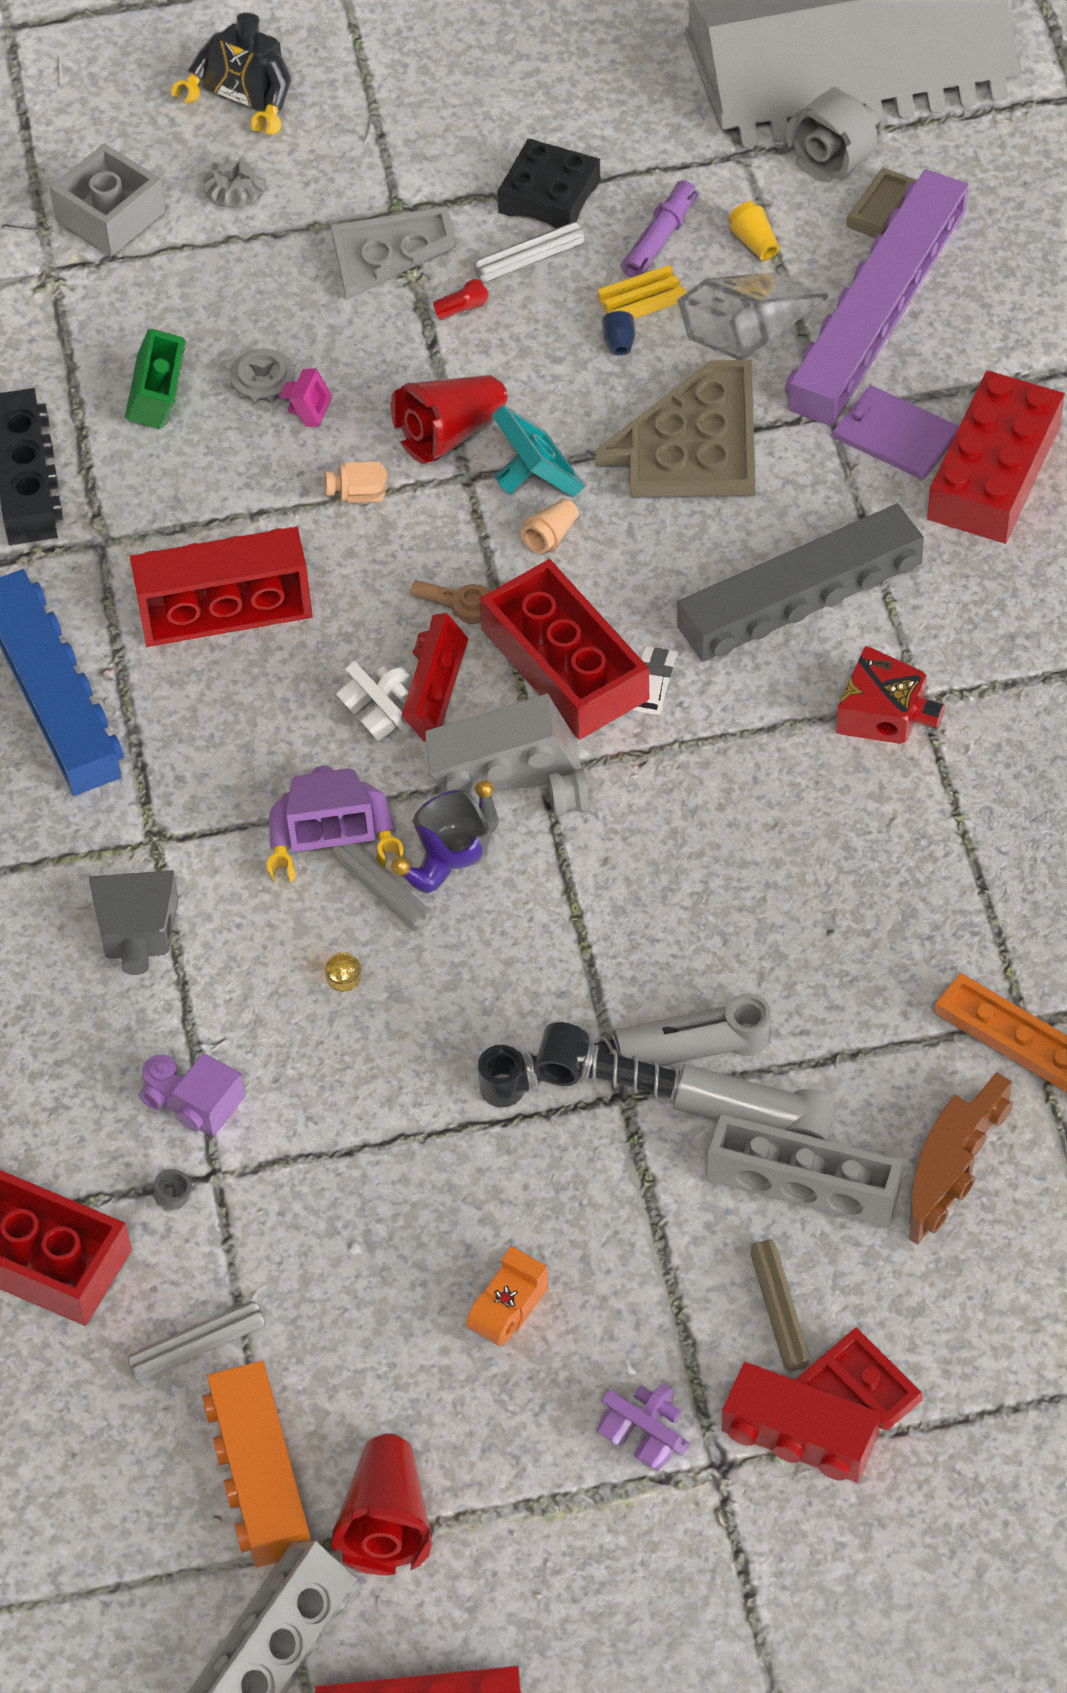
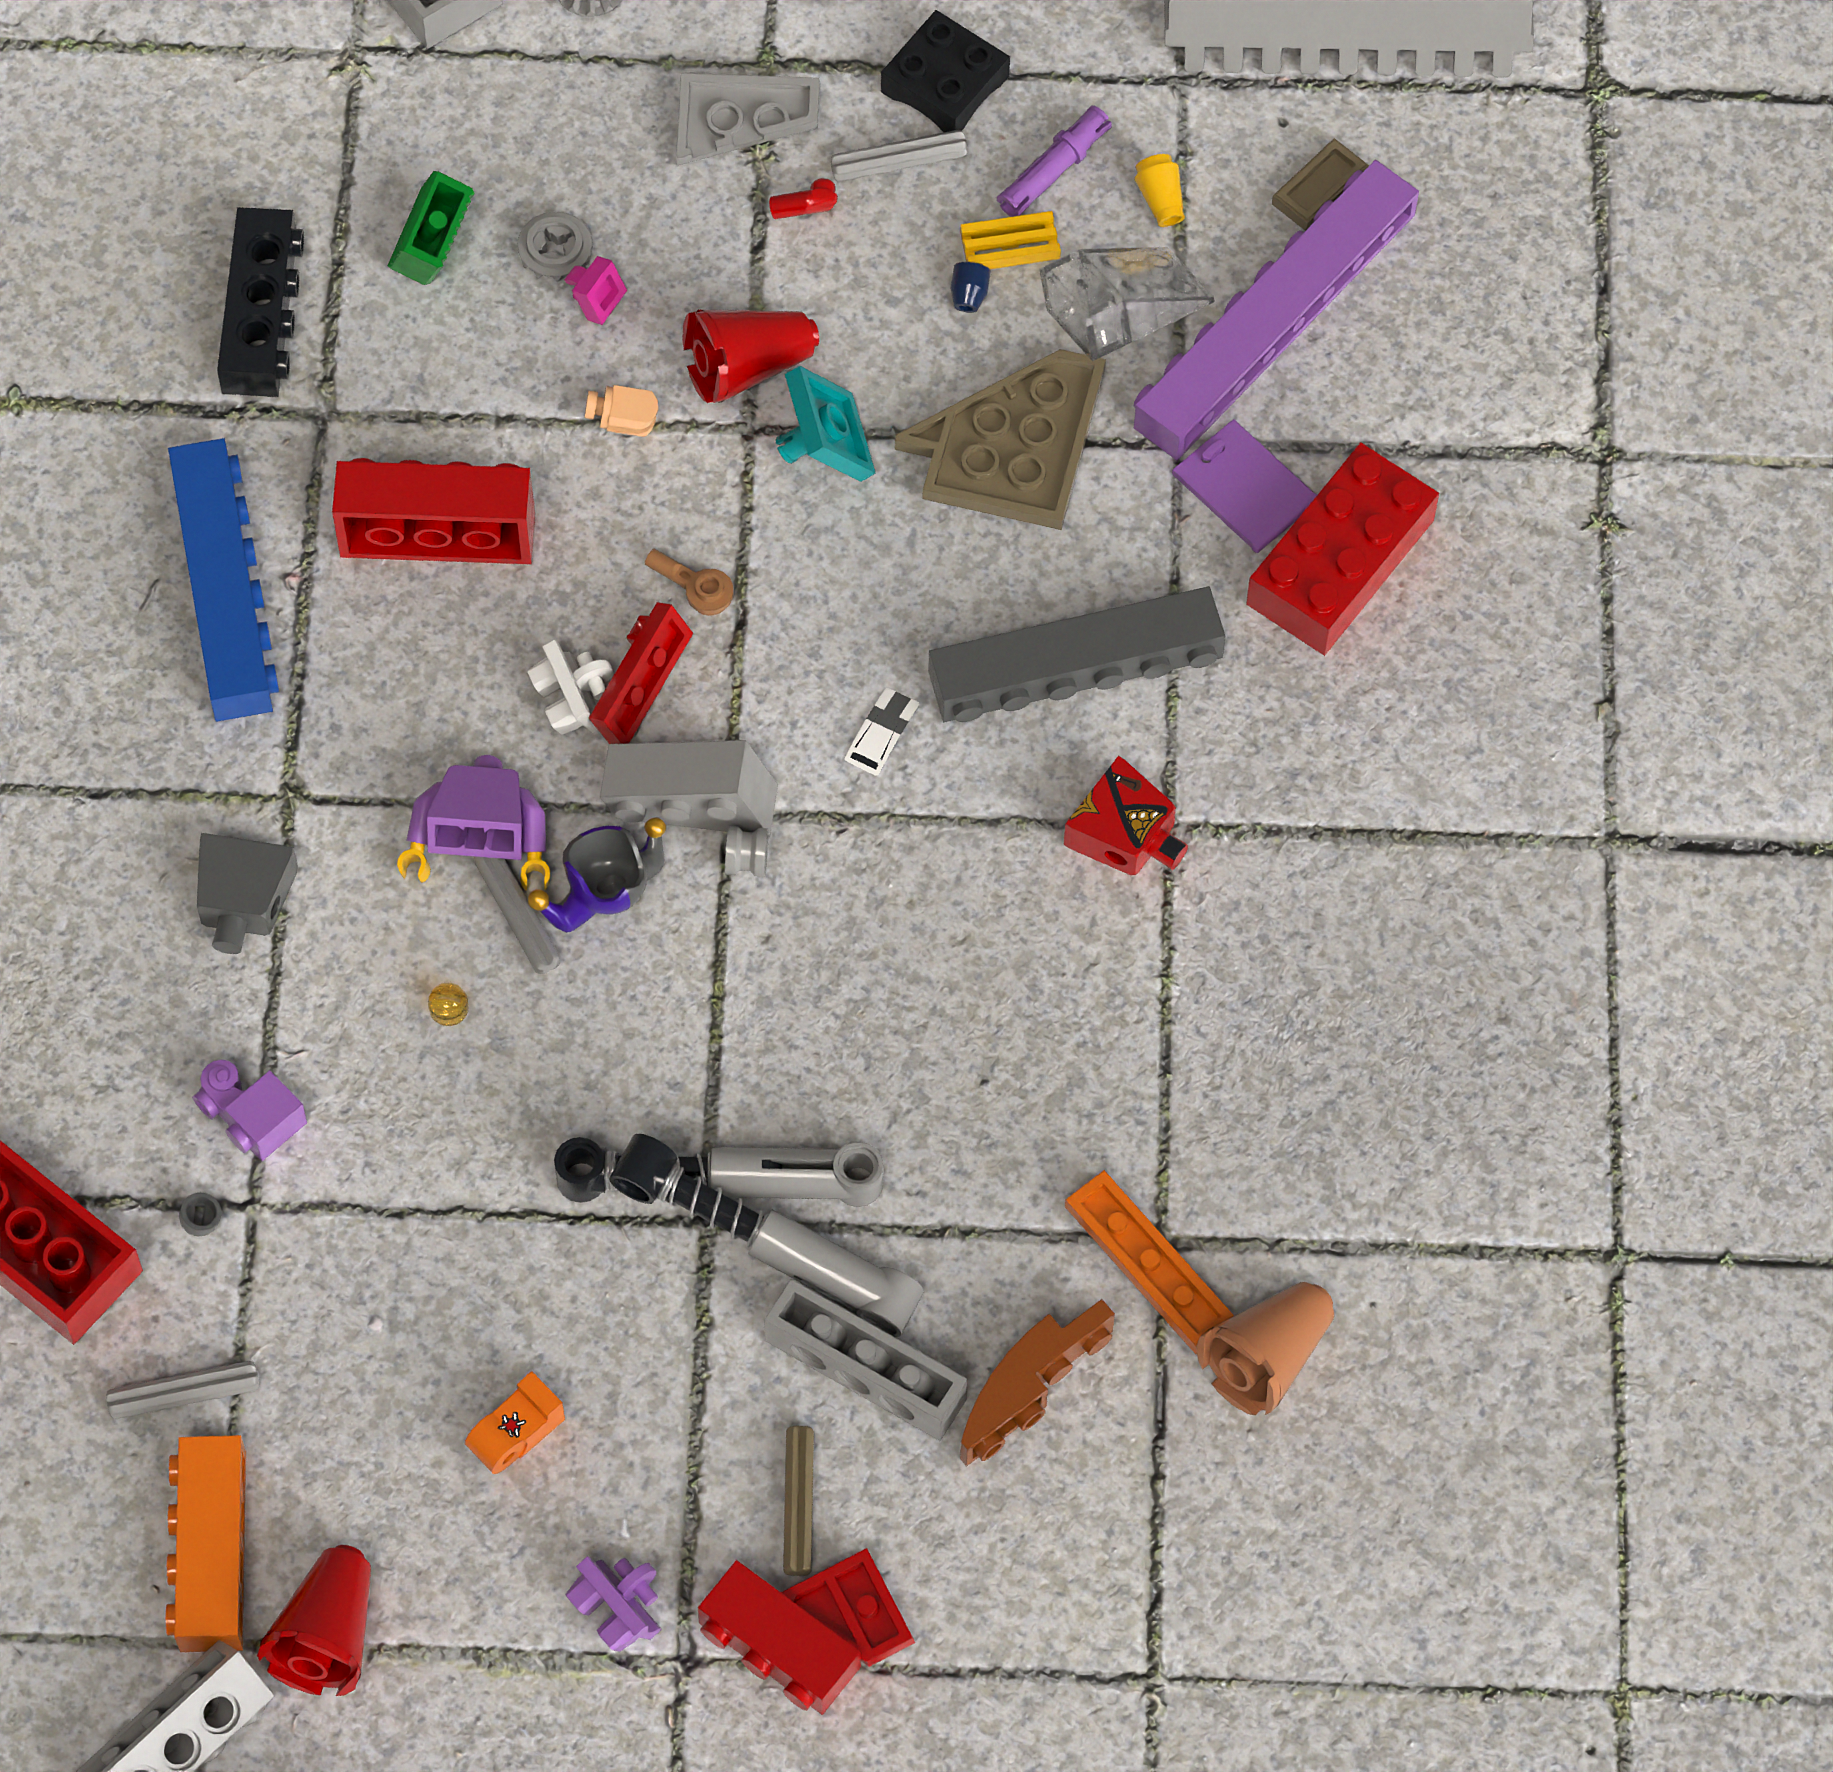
camera: 10 degrees right, 10 degrees up
(549, 526) = (820, 516): light nougat cone -> none
(565, 648) = (789, 677): red brick -> none
(832, 135) = (1284, 88): light grey brick -> none

